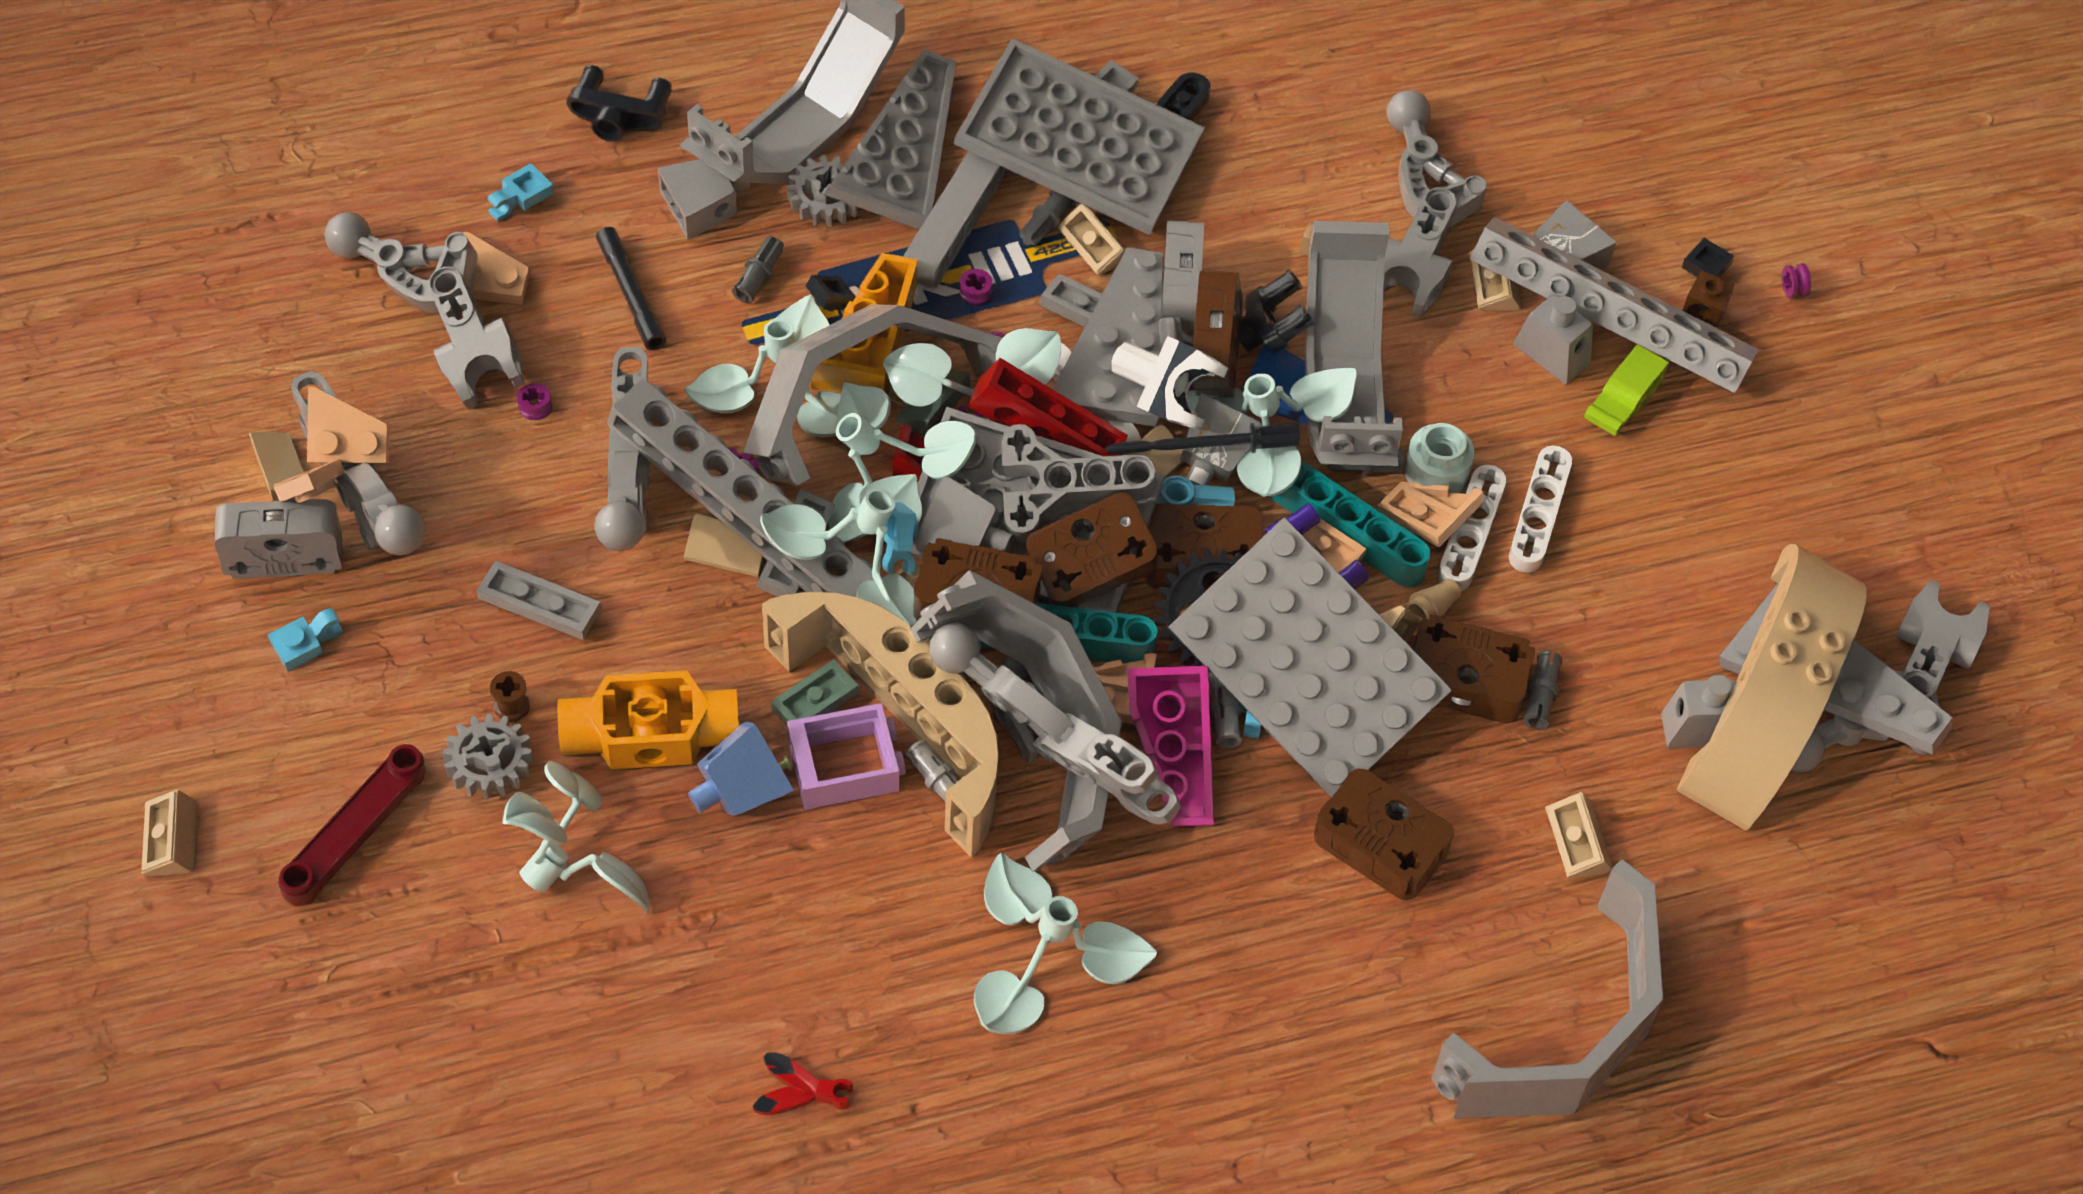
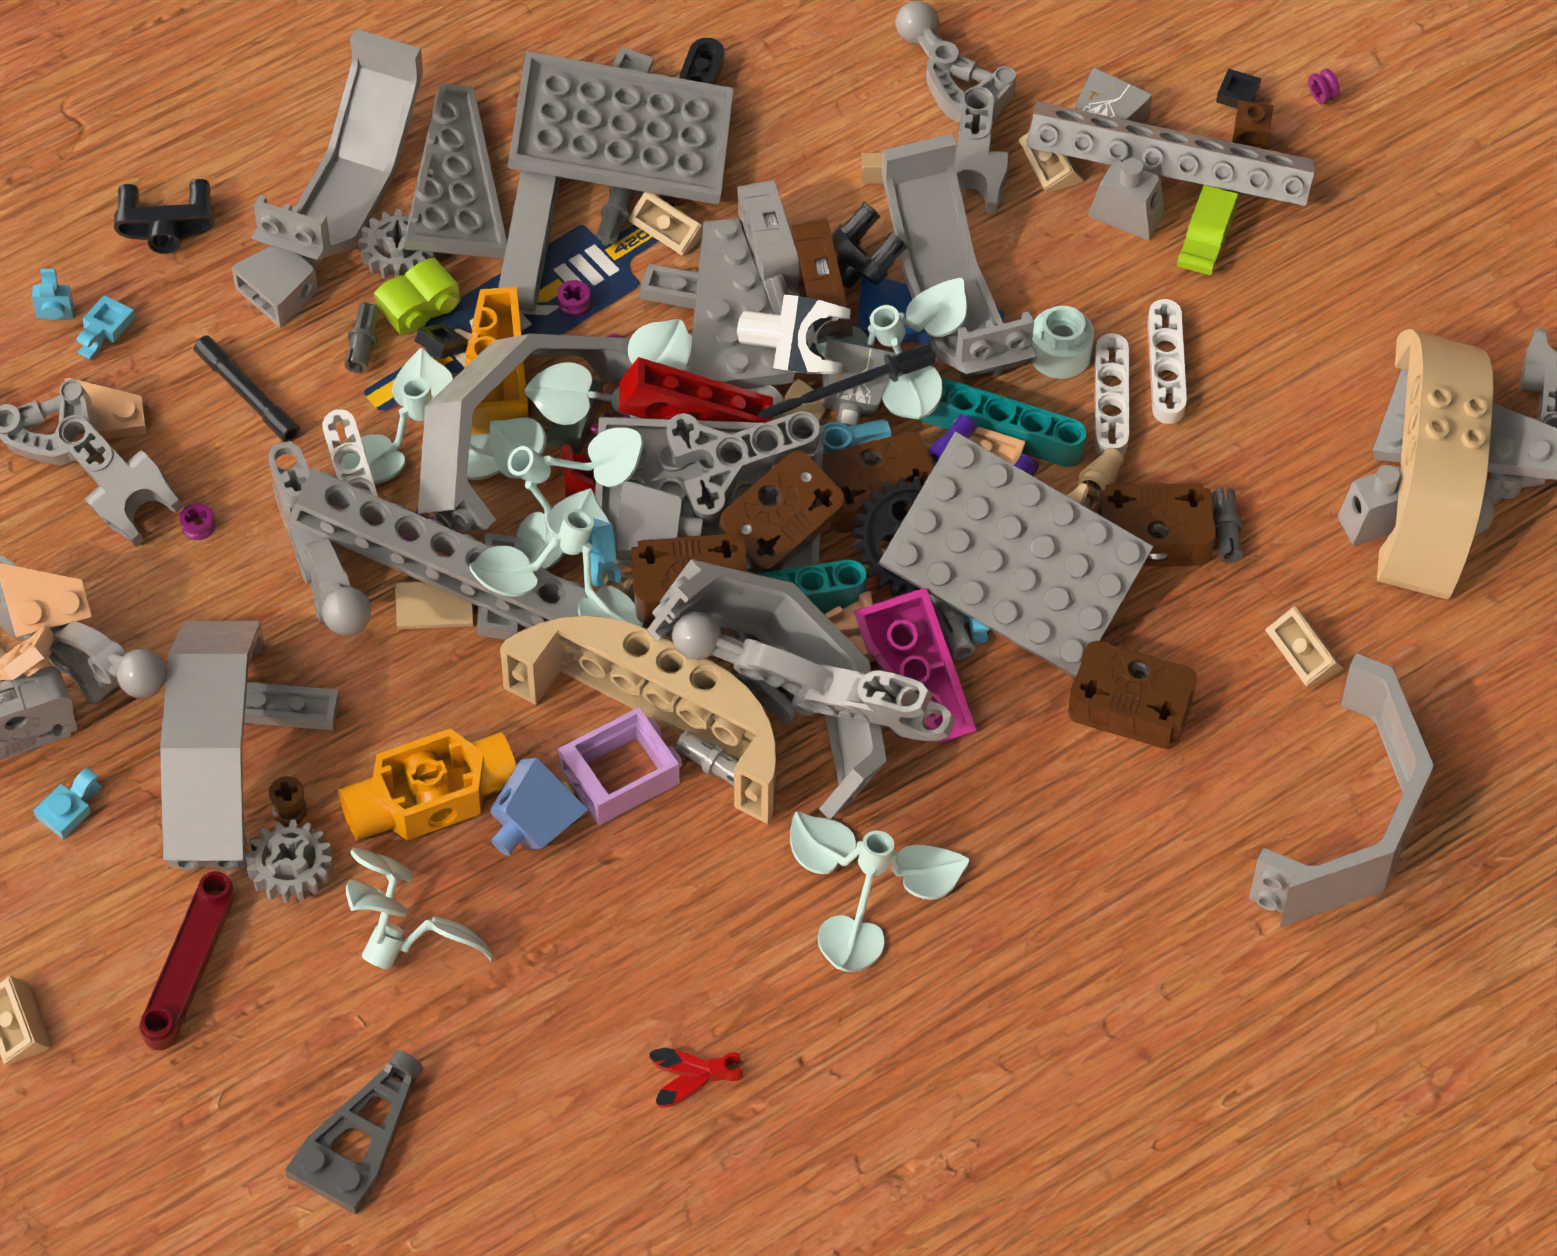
camera: 15 degrees left, 0 degrees up
(407, 1081) = (332, 1174): none -> dark grey plate
(437, 609) = (205, 743): none -> light grey panel
(480, 154) = (51, 299): none -> medium azure plate
(704, 399) = (361, 474): none -> white beam
(816, 694) = (571, 717): sand green plate -> none
(825, 244) = (417, 296): none -> lime brick
(1430, 510) = (1069, 389): light nougat wing -> none

